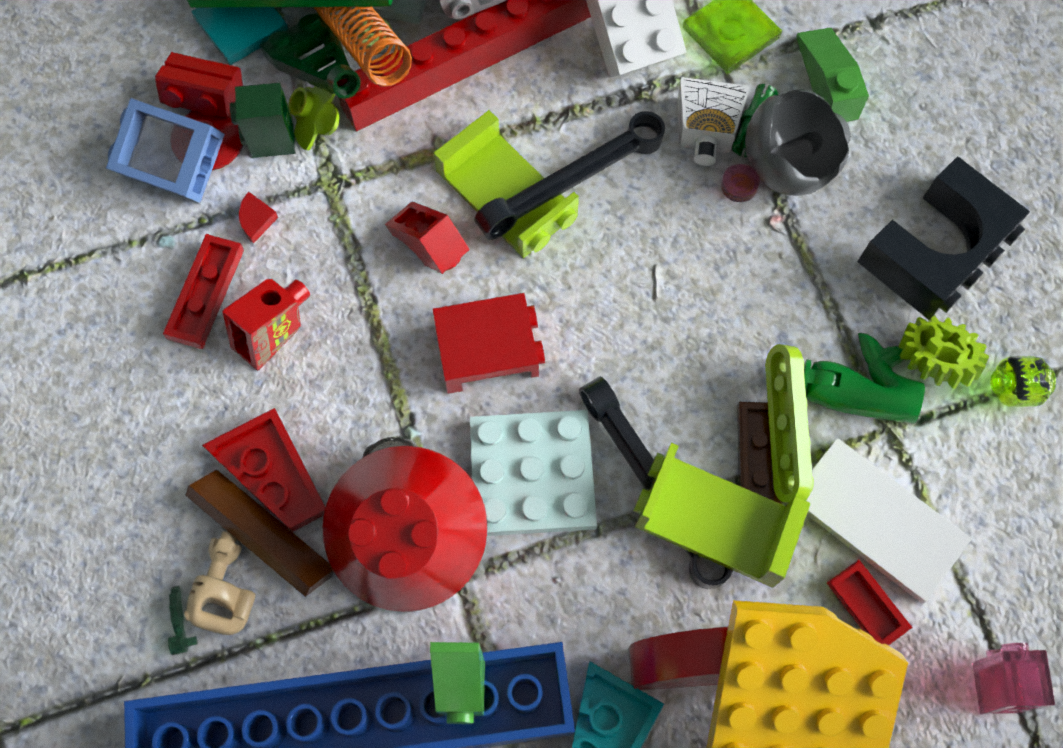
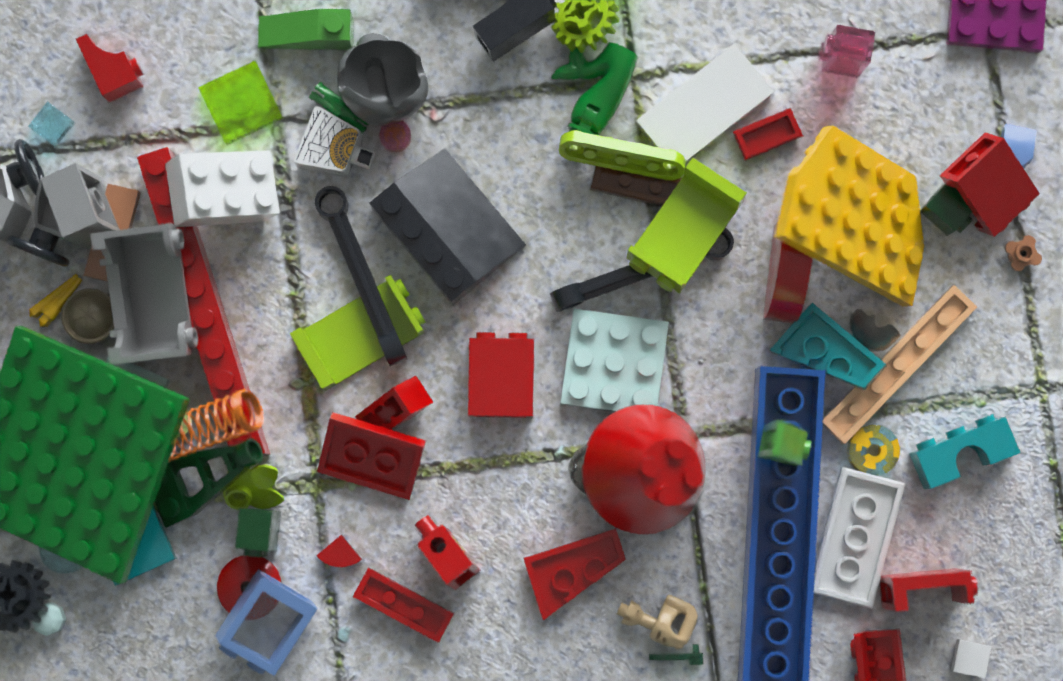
camera: 85 degrees left, 15 degrees up
(198, 84) = (202, 586): red brick -> none
(260, 532) = (622, 583): reddish brown tile -> none
(367, 220) = (371, 456): none -> red plate
(650, 252) = (447, 225): none -> black slope

